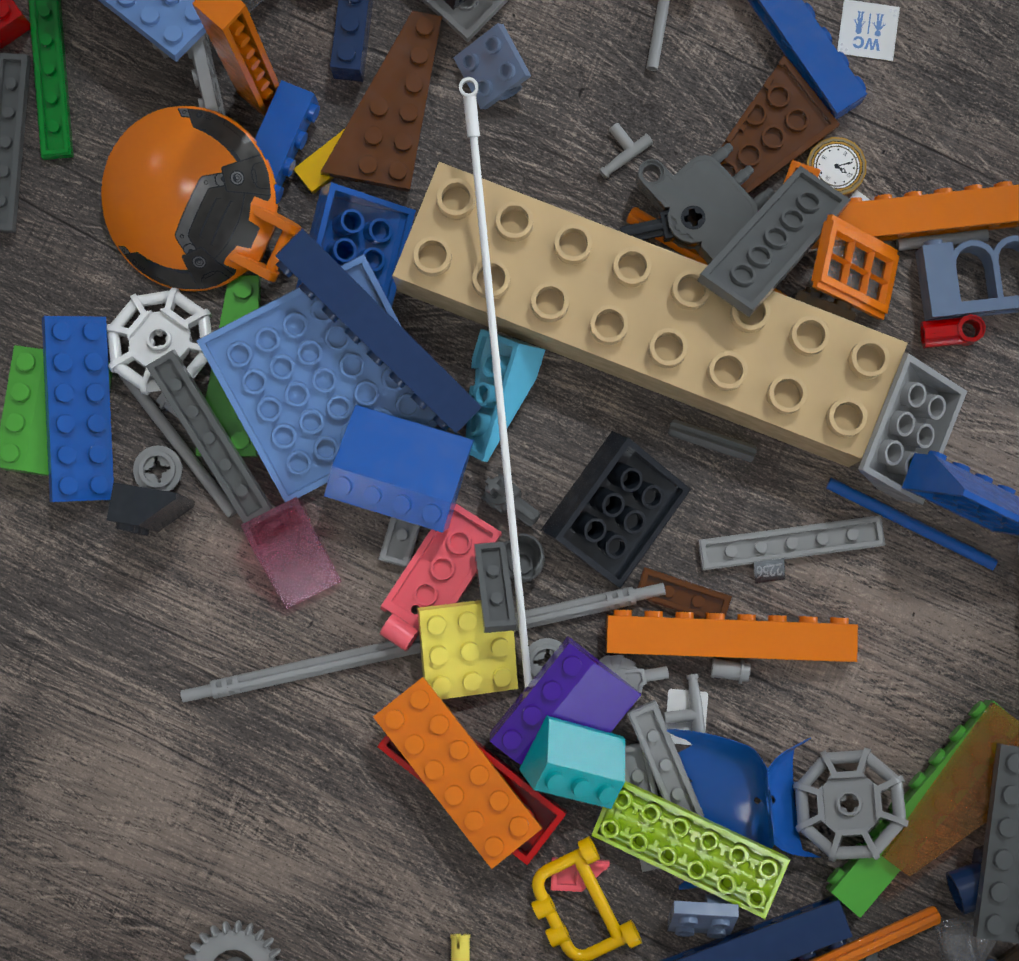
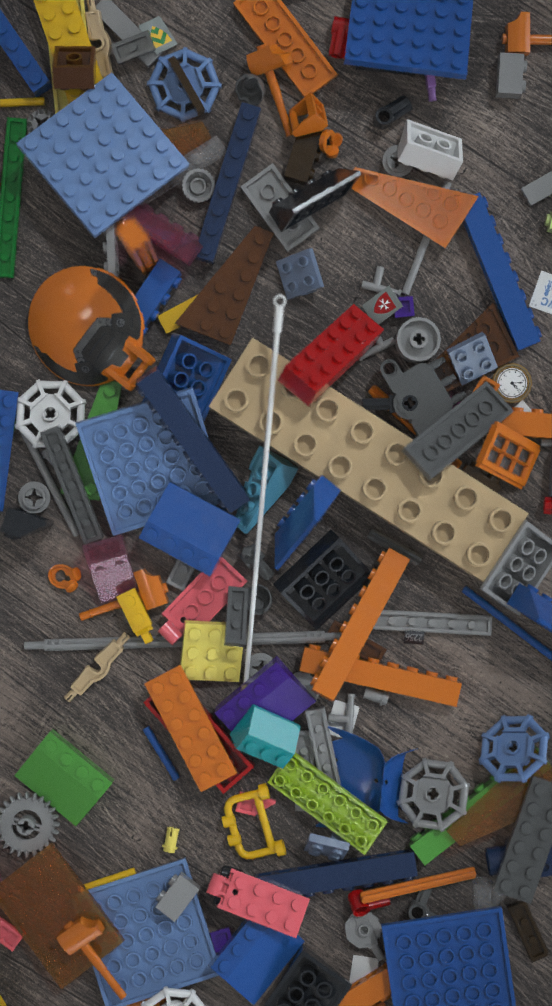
camera: 10 degrees right, 5 degrees up
(236, 591) = (73, 573): none -> orange piece
(278, 887) = (64, 777): none -> bright green slope
(289, 721) = (104, 660): none -> tan piece
(296, 47) = (166, 235): none -> clear pink slope
(342, 615) = (136, 614): none -> yellow hinge
(359, 578) = (151, 591): none -> orange piece
(420, 822) = (161, 753): none -> blue bar
(559, 166) = (330, 355): none -> red brick
(567, 415) = (303, 517): none -> blue slope
(607, 65) = (376, 285): none -> light grey piece
(622, 91) = (382, 305): none -> light grey sticker
(653, 87) = (407, 309): none -> dark purple plate
(675, 115) = (426, 332): none -> light grey wheel
(685, 565) = (360, 625): none -> orange brick
(771, 136) = (472, 358): none -> sand blue plate
(971, 720) = (521, 756): none -> medium blue plate

